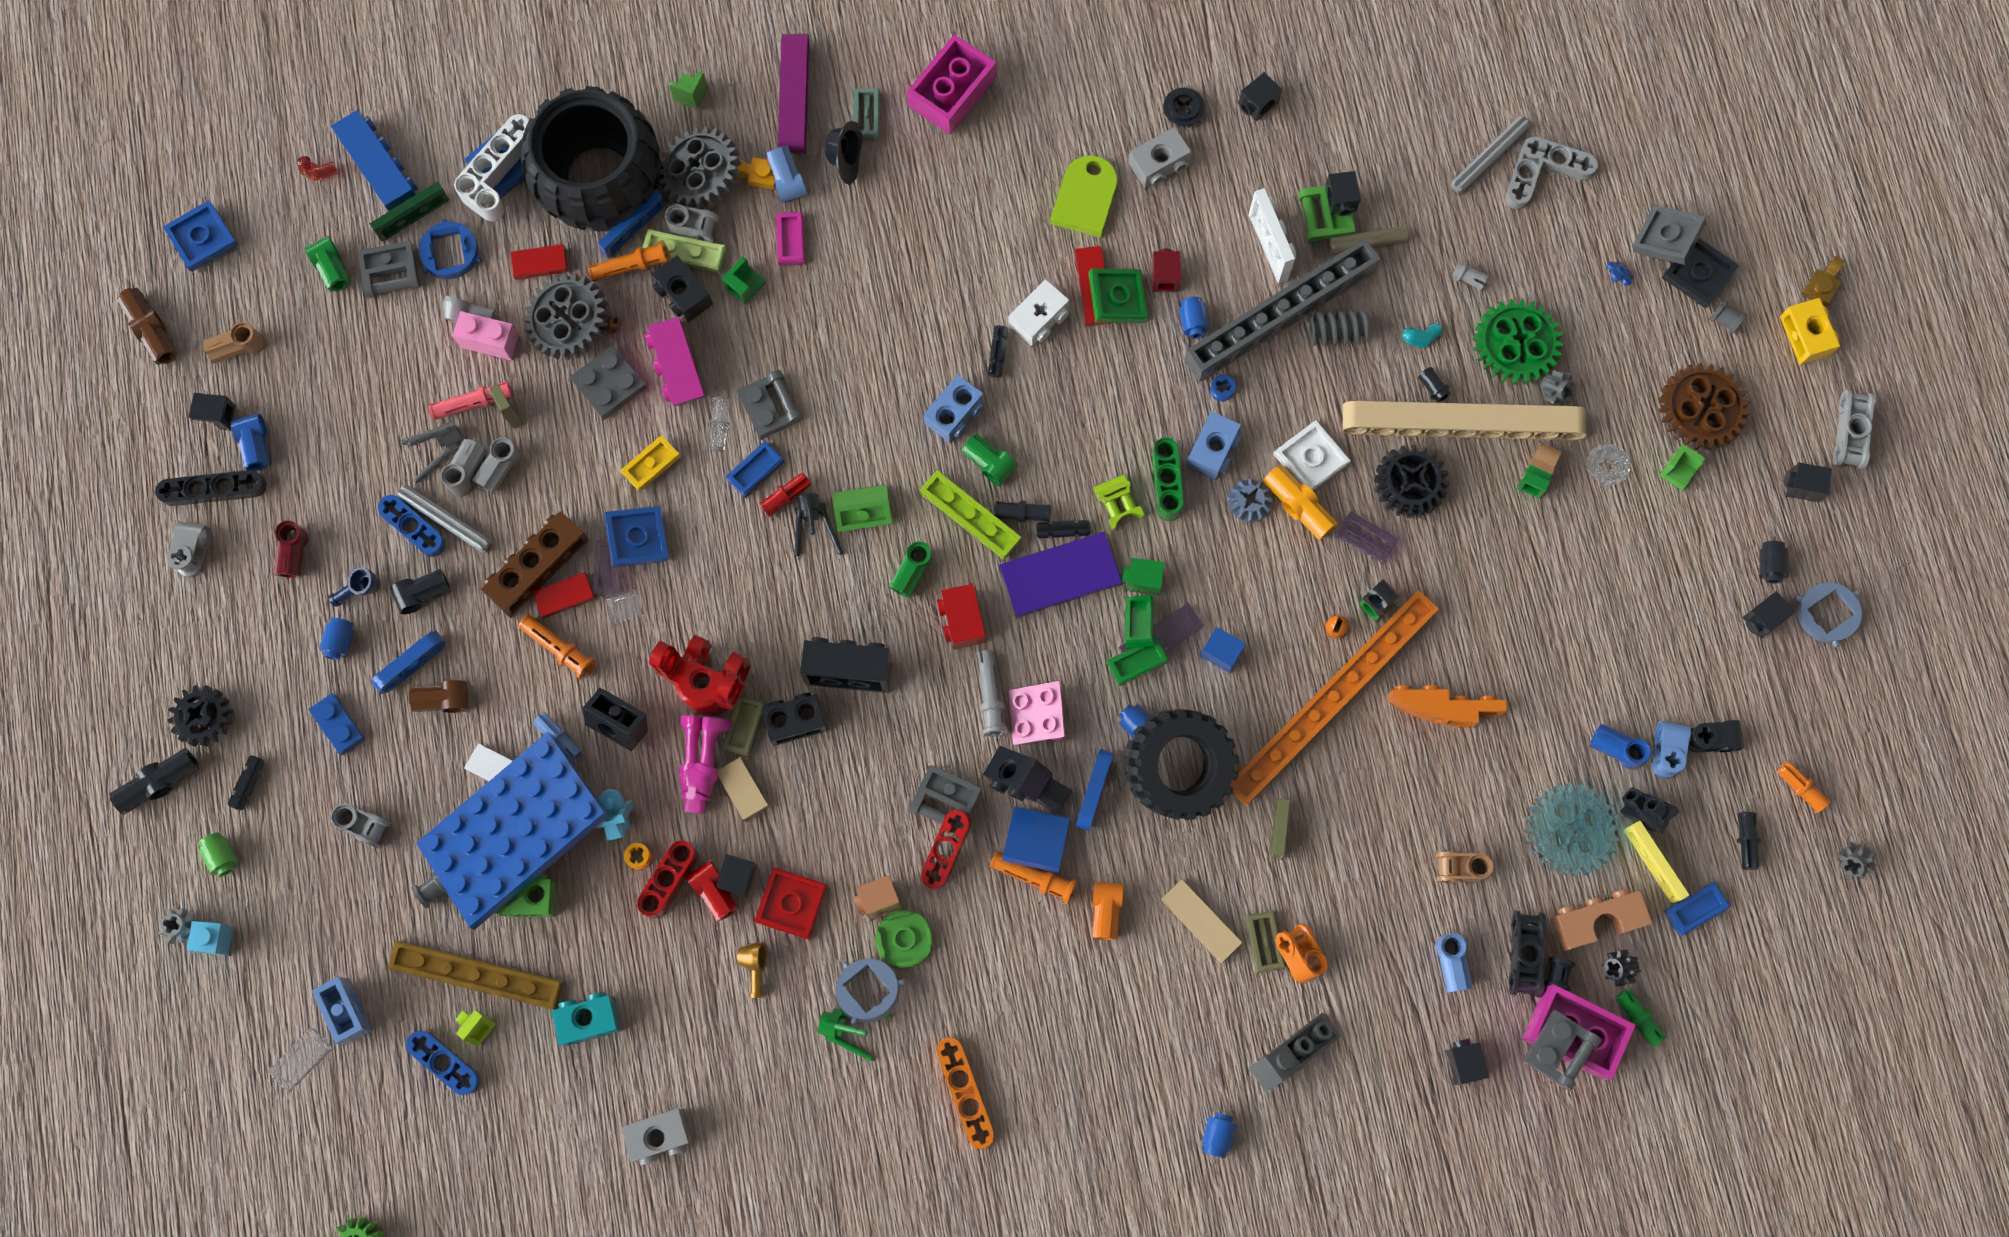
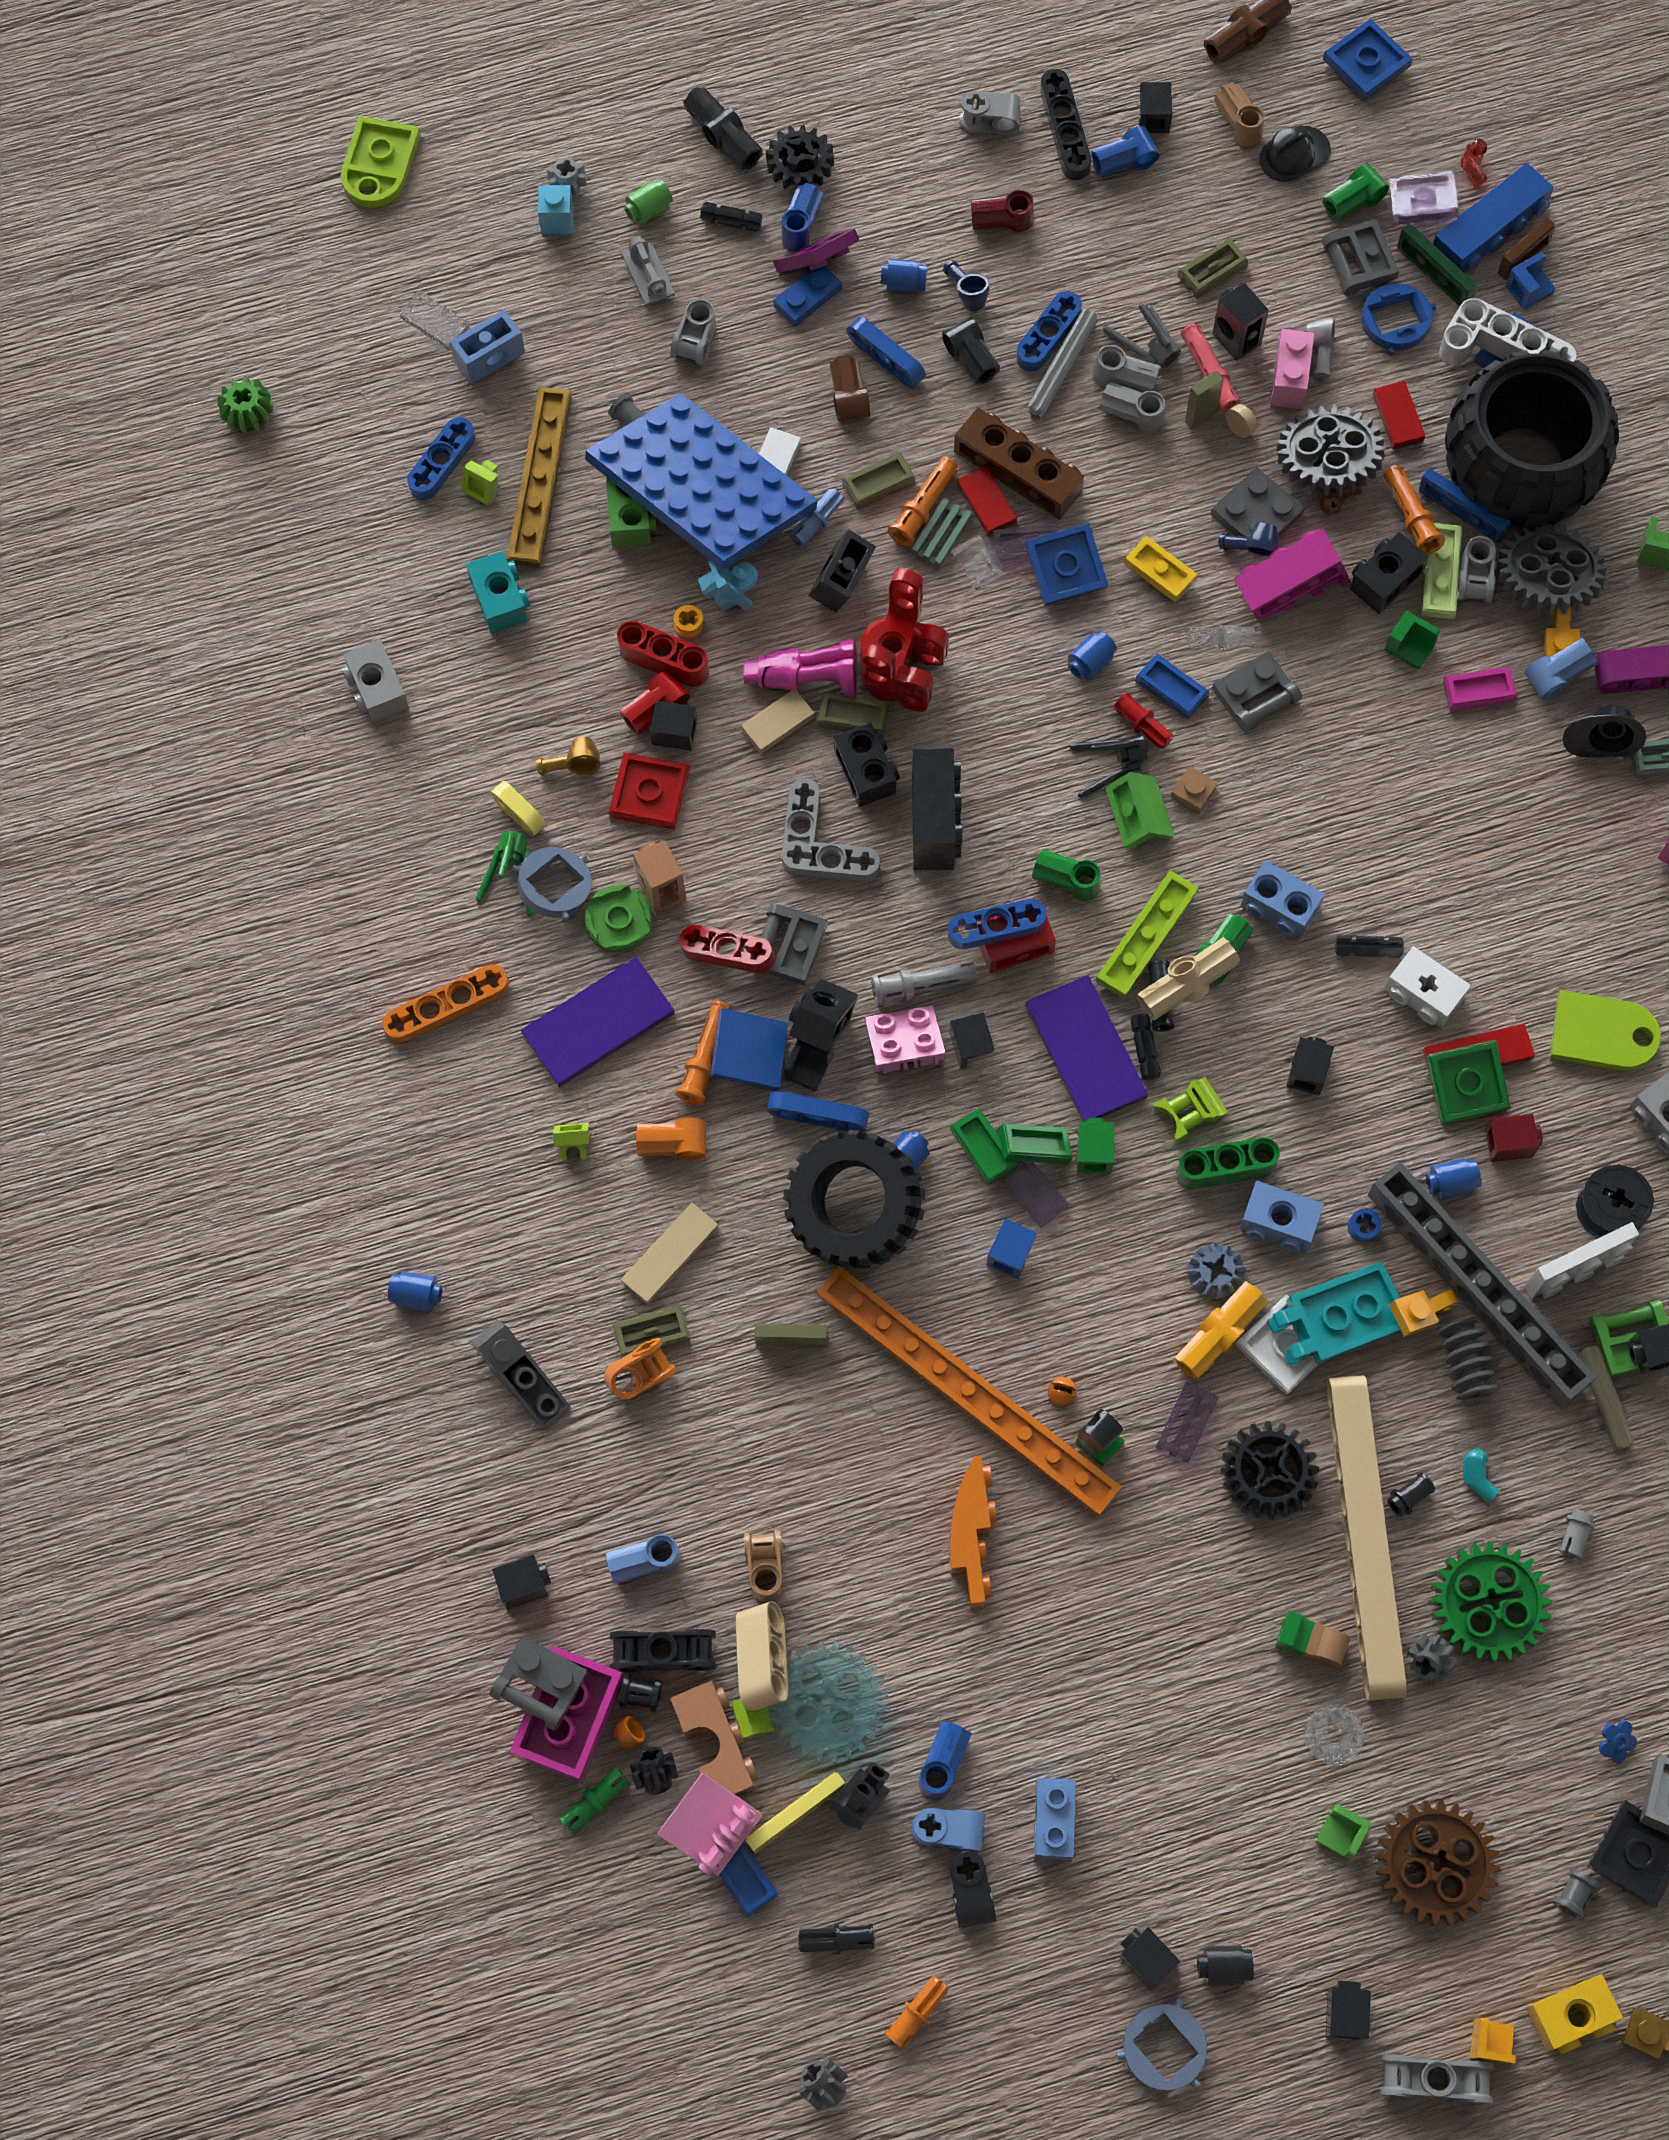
camera: 85 degrees right, 5 degrees down
(117, 1102) = (379, 158): none -> lime tile
(259, 721) = (801, 216): none -> blue piece
(277, 307) = (1294, 152): none -> black piece
(288, 861) = (647, 271): none -> light grey hinge
(300, 709) = (815, 254): none -> magenta wing
(346, 210) = (1423, 198): none -> clear purple plate
(385, 405) = (1214, 280): none -> olive tile
(407, 141) = (1527, 247): none -> reddish brown tile
(436, 368) = (1240, 321): none -> black brick
(438, 145) = (1529, 283): none -> blue panel
(525, 382) = (1241, 420): none -> tan tile
(528, 682) = (878, 480): none -> olive tile
(569, 622) = (954, 511): none -> sand green tile
(640, 379) = (1261, 540): none -> dark blue bar
(721, 527) = (1092, 655): none -> blue brick
(795, 1016) = (518, 808): none -> light yellow beam
(848, 464) = (1194, 789): none -> medium nougat plate
(856, 776) = (806, 842): none -> light grey beam
(961, 606) = (1023, 927): none -> blue beam
(995, 964) = (597, 1021): none -> dark purple tile
(1013, 476) = (1188, 978): none -> tan piece
(1047, 660) = (970, 1038): none -> black panel
(1093, 407) = (1310, 1065): none -> black brick
(1096, 992) = (571, 1136): none -> lime tile
(1214, 198) = (1617, 1183): none -> black piece
(1295, 412) = (1339, 1315): none -> teal tile
(1296, 358) = (1418, 1313): none -> light orange plate
(1540, 874) = (761, 1656): none -> tan beam
(1581, 887) = (752, 1723): none -> lime tile
(1588, 986) = (629, 1732): none -> orange hinge
(1667, 669) = (1054, 1819): none -> medium blue brick
(1671, 925) = (710, 1824): none -> bright pink hinge
(1829, 389) = (1492, 2042): none -> light orange panel

